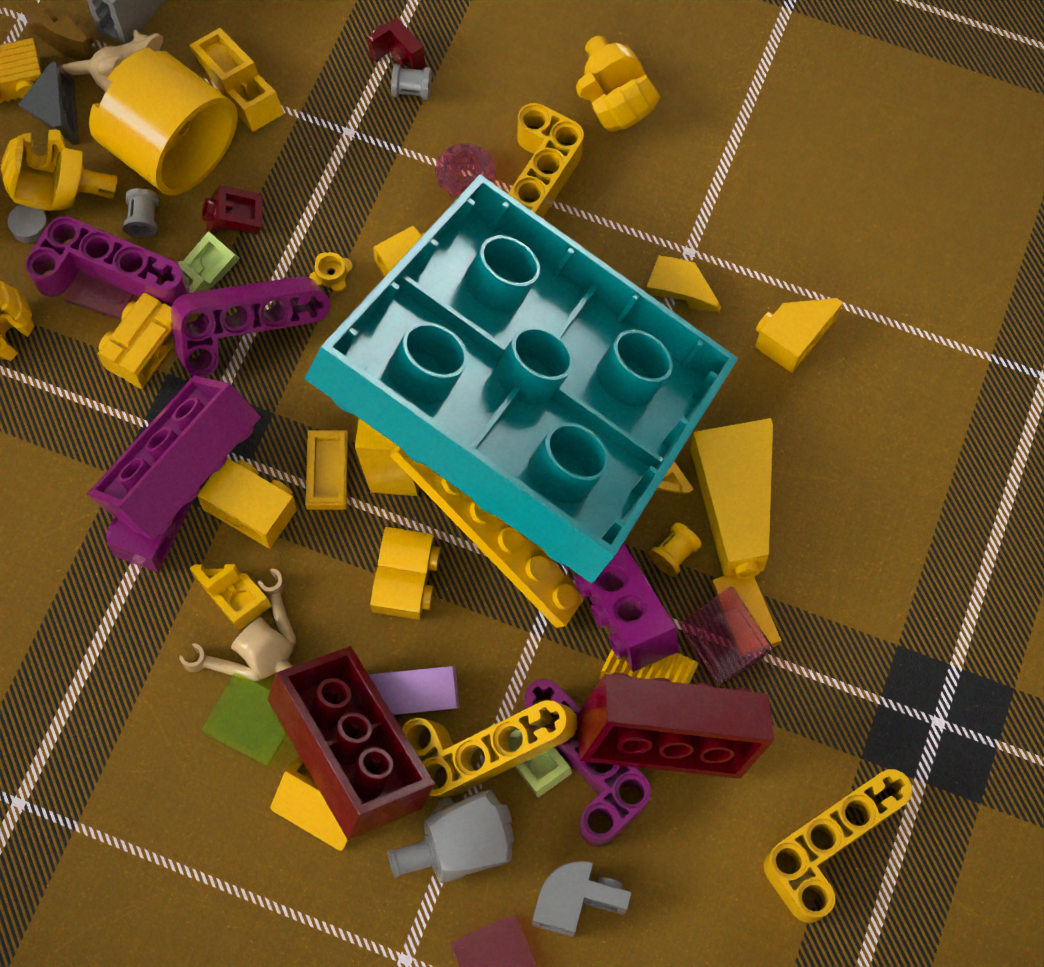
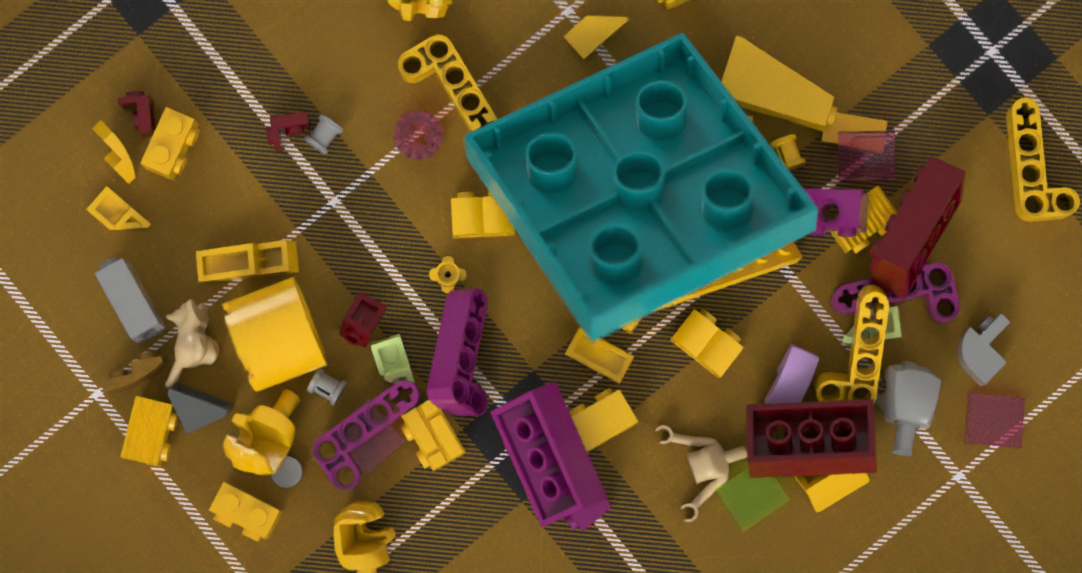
camera: 60 degrees left, 15 degrees up
(233, 593) = (656, 463): yellow slope -> none

